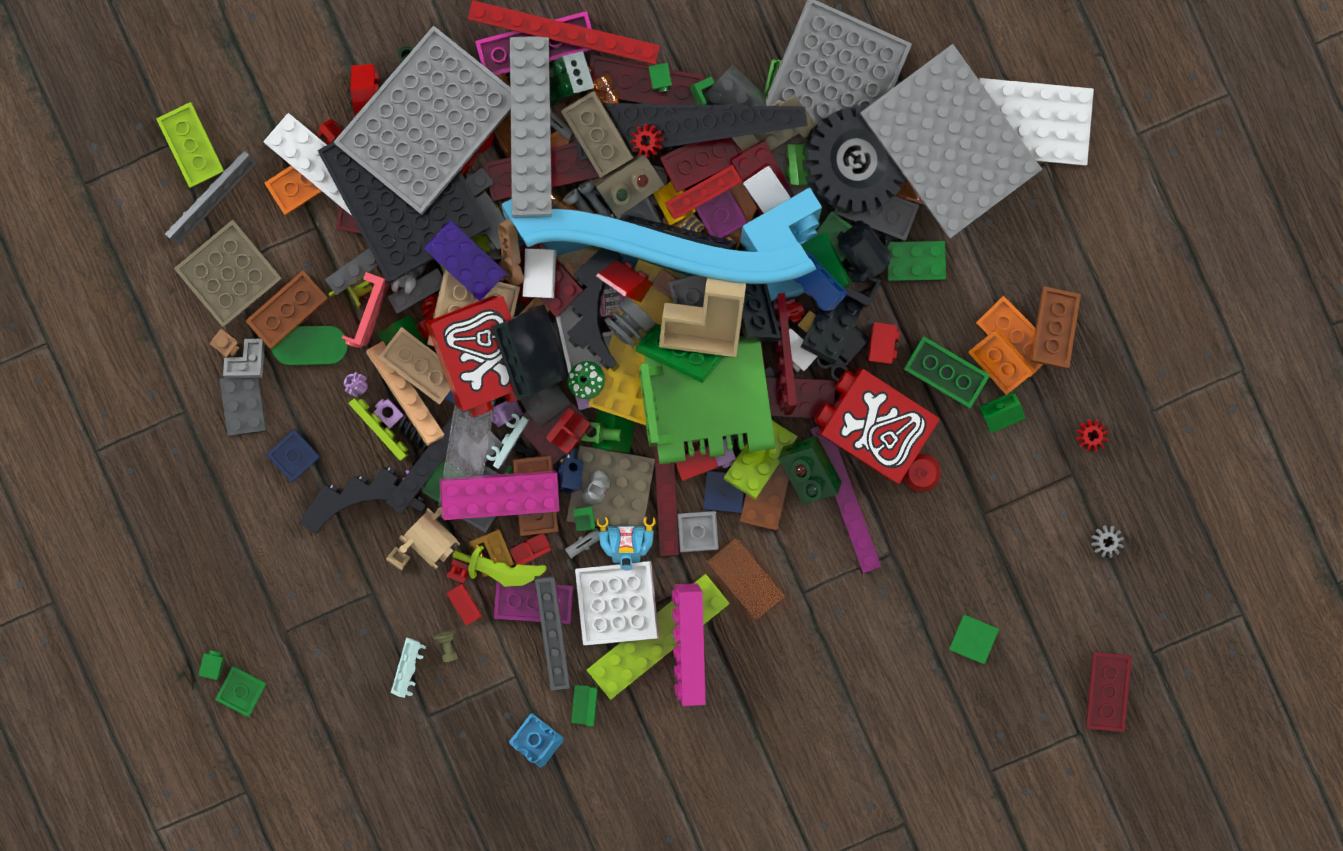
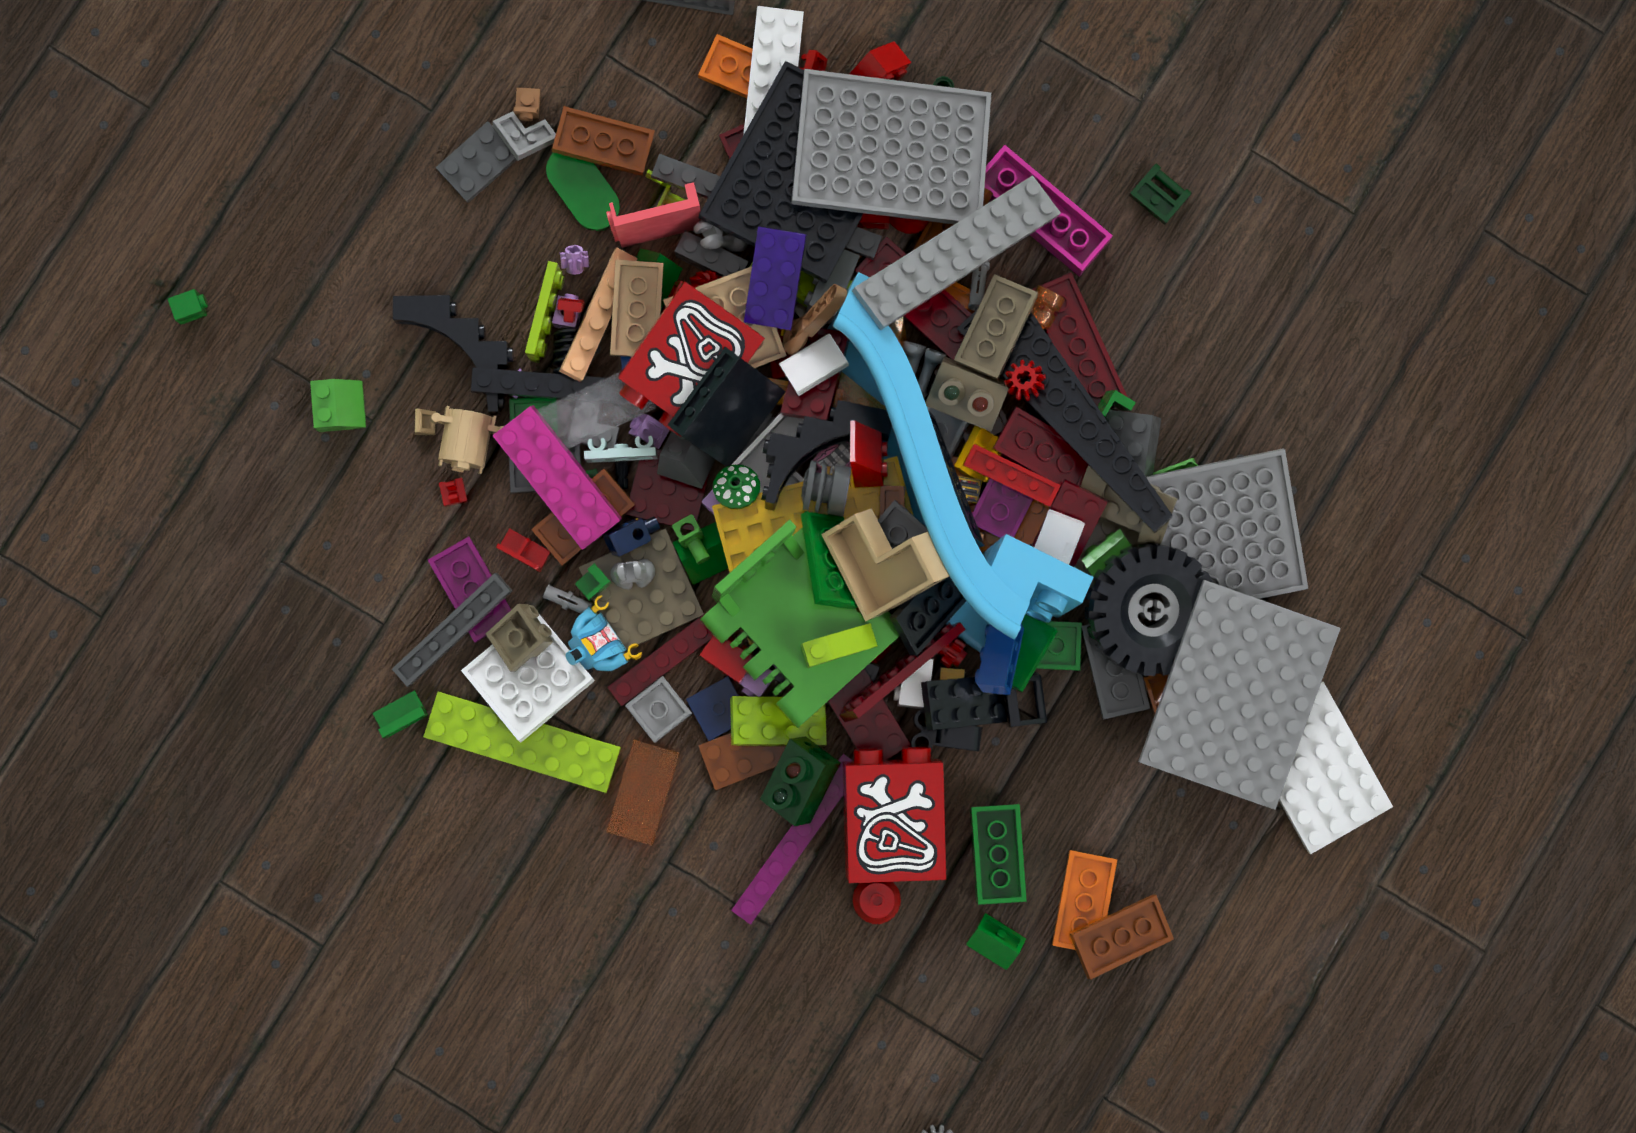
camera: 55 degrees right, 5 degrees down
(228, 273) = (600, 59): dark tan plate -> none
(240, 691) = (181, 354): green tile -> none
(293, 455) = (459, 246): dark blue plate -> none
(347, 608) = (338, 405): none -> bright green slope
(388, 409) = (570, 308): none -> red tile
(406, 668) = (317, 506): light aqua plate -> none
(445, 638) = (373, 524): olive piece -> none
(464, 604) = (423, 521): red panel -> none
(495, 546) = (500, 516): pearl gold plate -> none
(500, 571) = (479, 532): lime sword -> none
(536, 740) = (329, 689): dark azure slope -> none
(563, 32) = (1075, 227): red plate -> none
(568, 431) = (672, 505): red panel -> none
(570, 78) = (1033, 262): dark green piece -> none
(588, 591) = (520, 636): none -> dark tan plate
(660, 77) = (1096, 355): green brick -> none
(690, 644) = (529, 782): dark pink brick -> none
(739, 385) = (838, 645): none -> lime slope
(865, 251) = (1064, 683): black container -> none
(882, 343) = (982, 767): red brick -> none
(917, 261) = (1090, 745): green plate -> none
(973, 639) = (740, 1074): green tile -> none
(1001, 361) = (1048, 904): orange plate -> none
(1089, 429) = (1031, 1059): red gear -> none

